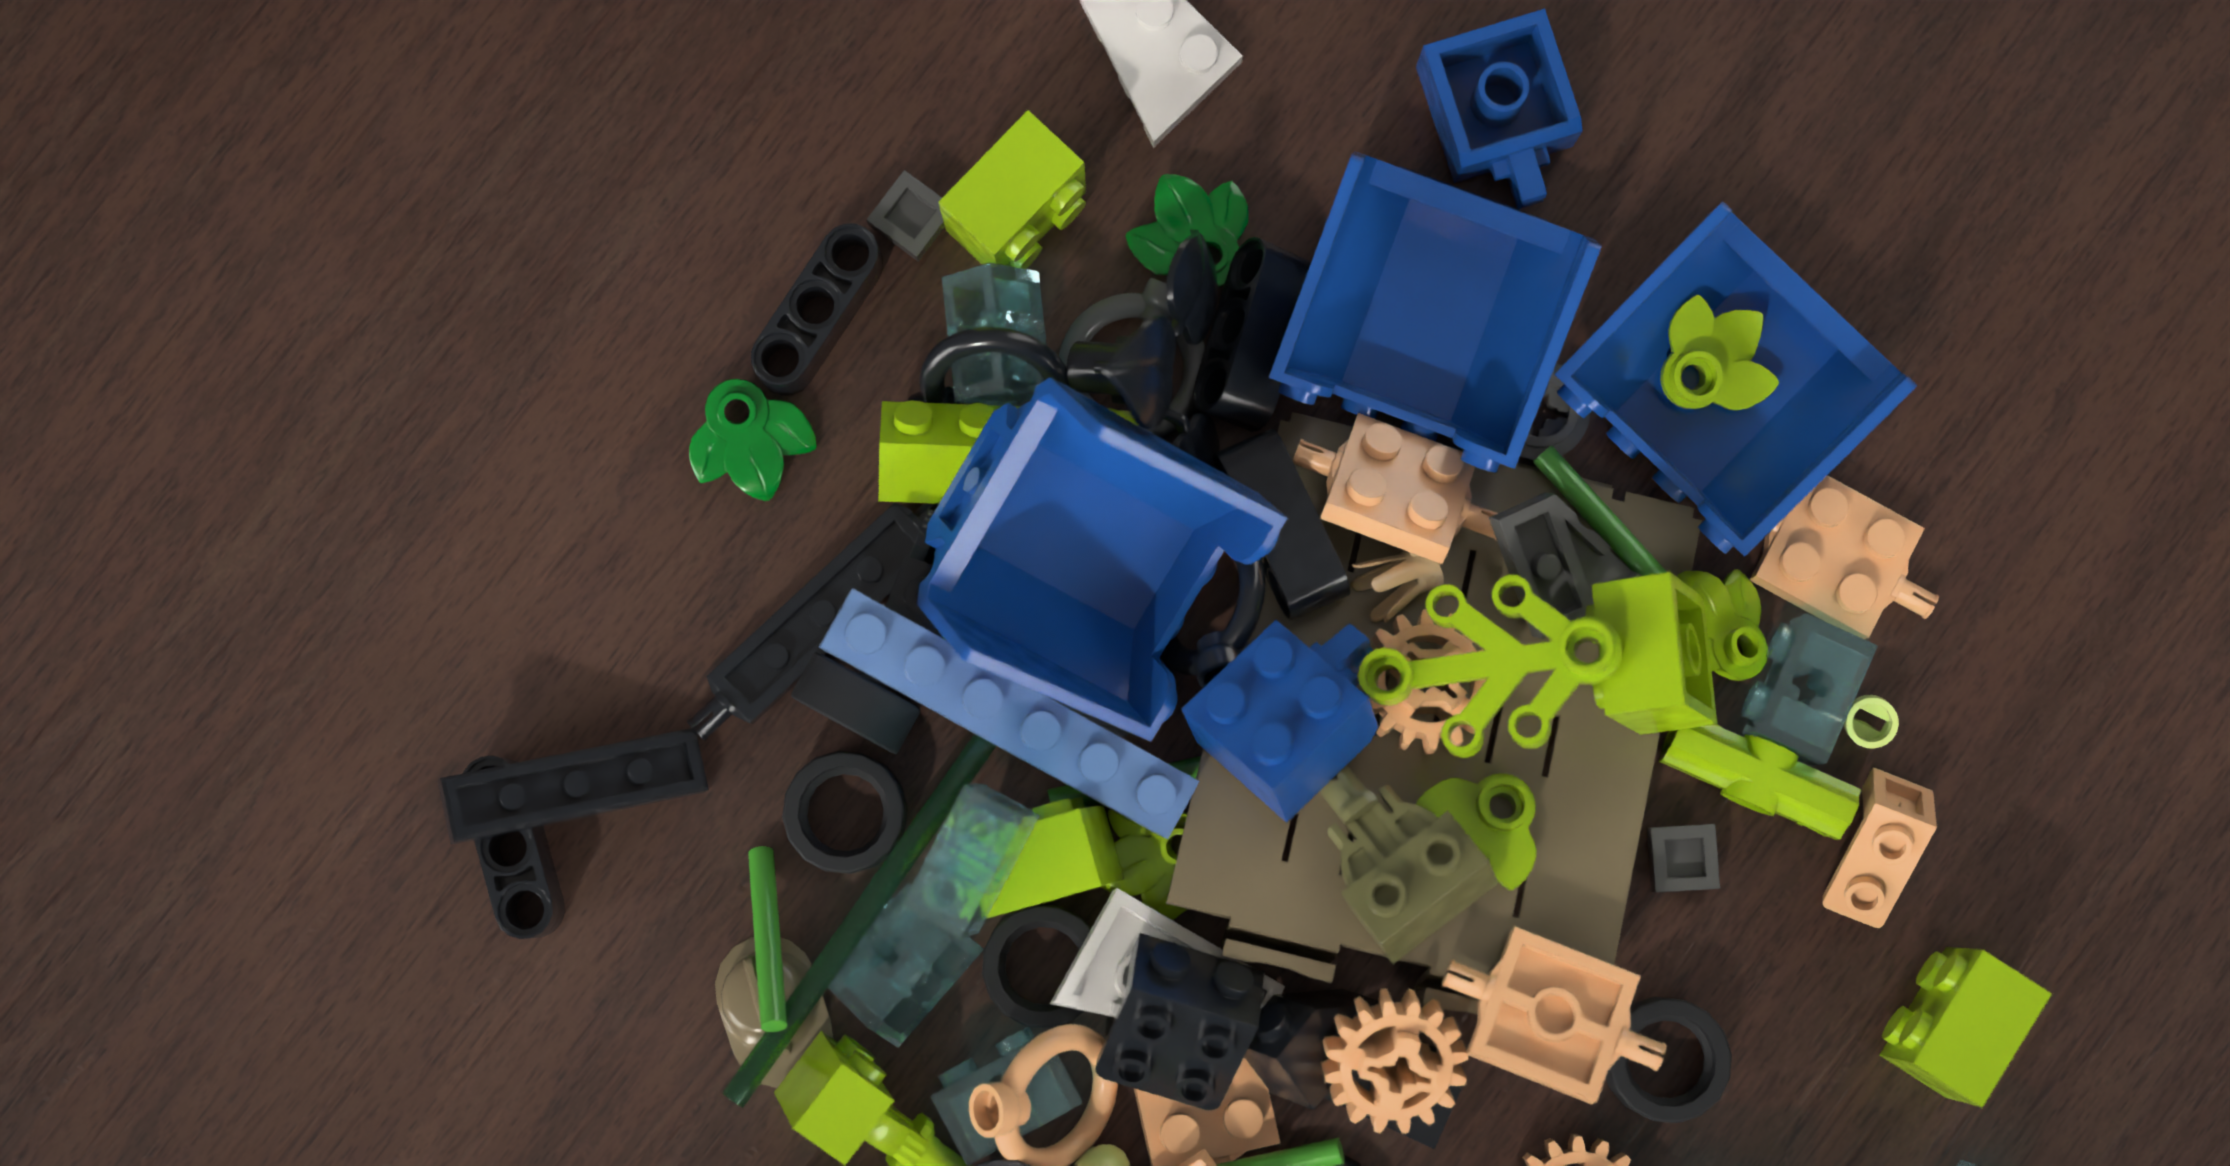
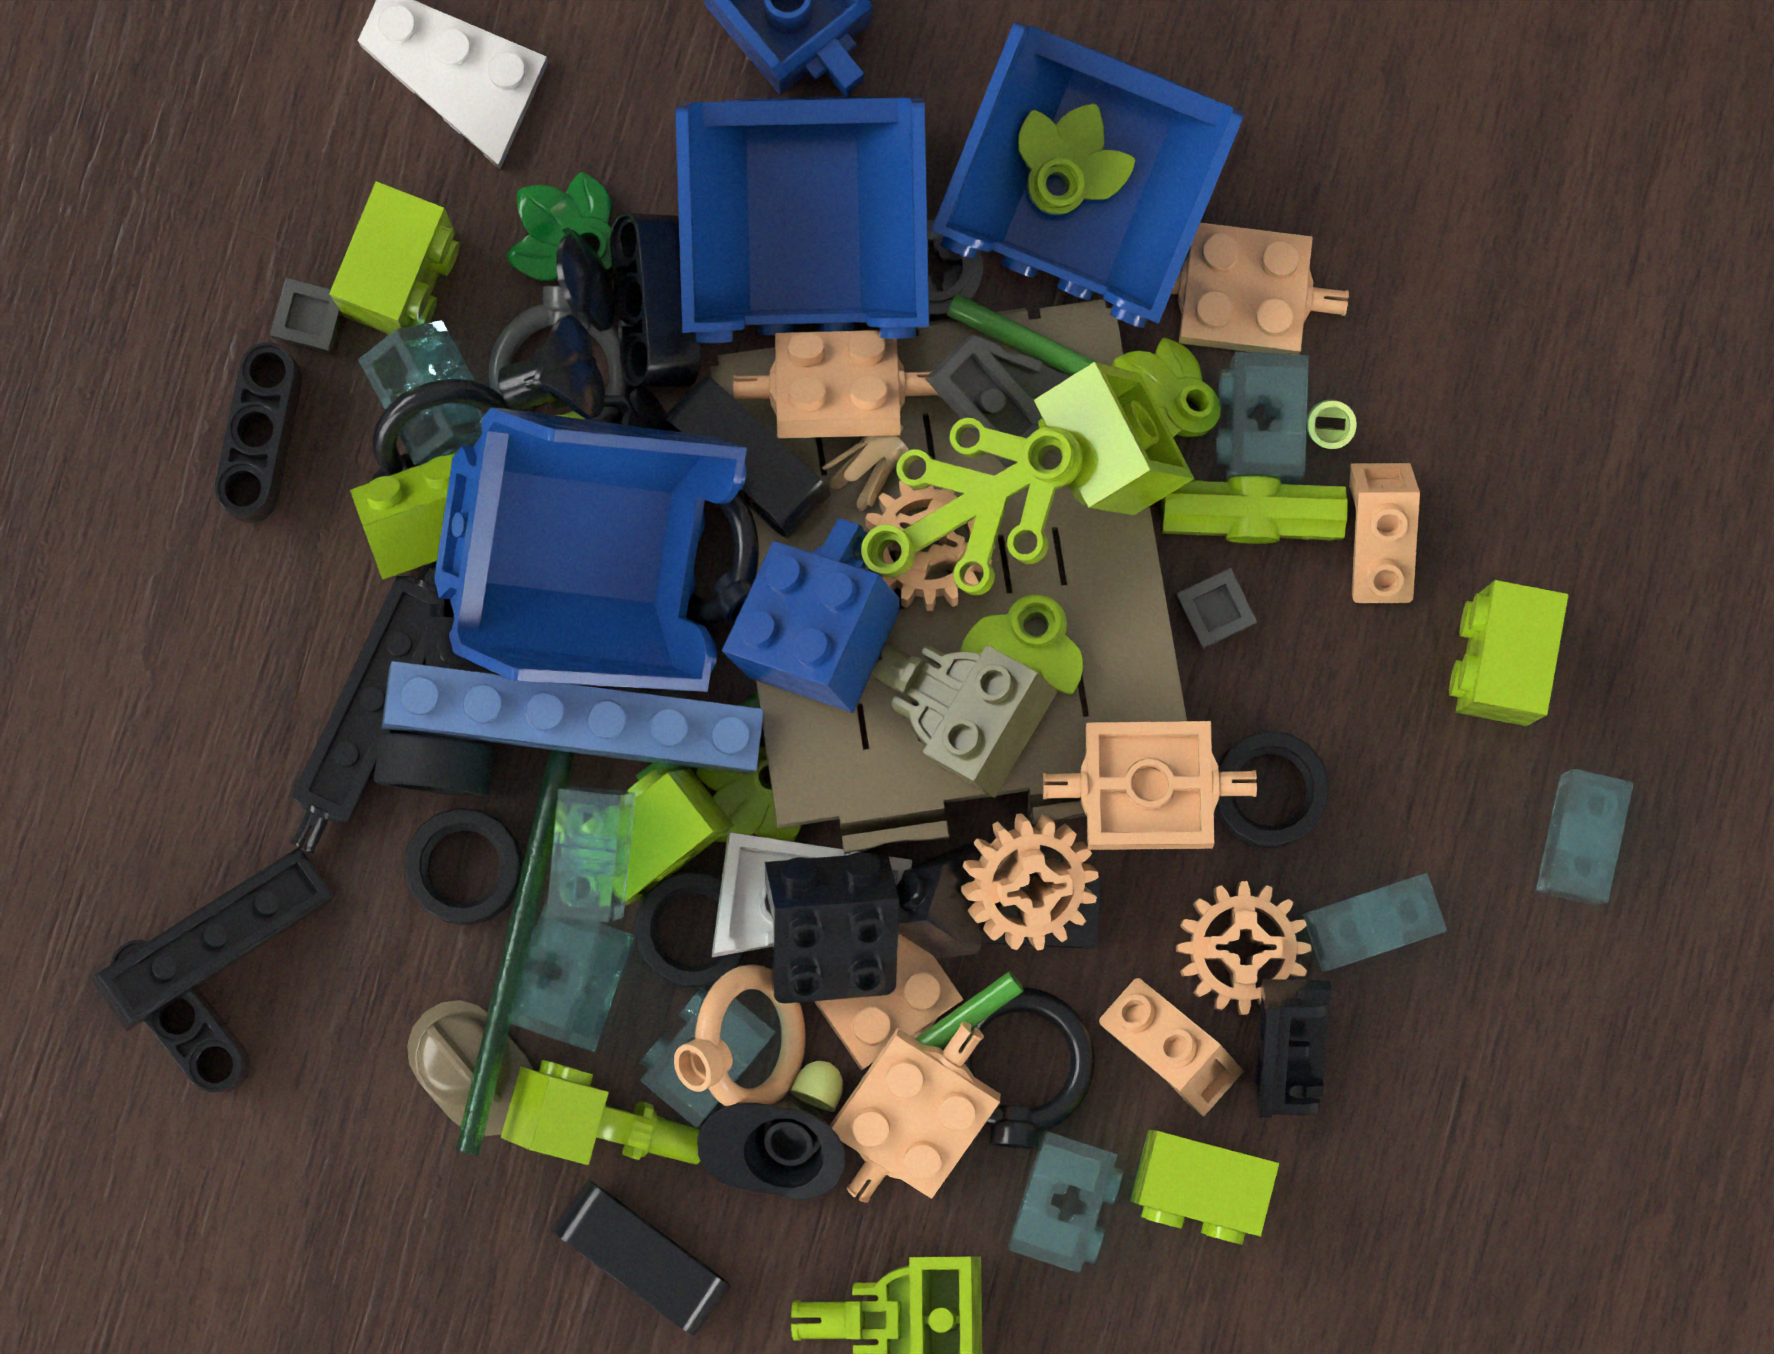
camera: 30 degrees left, 0 degrees up
(750, 448) = (249, 578): green plate -> none
(767, 939) = (440, 1003): bright green bar -> none

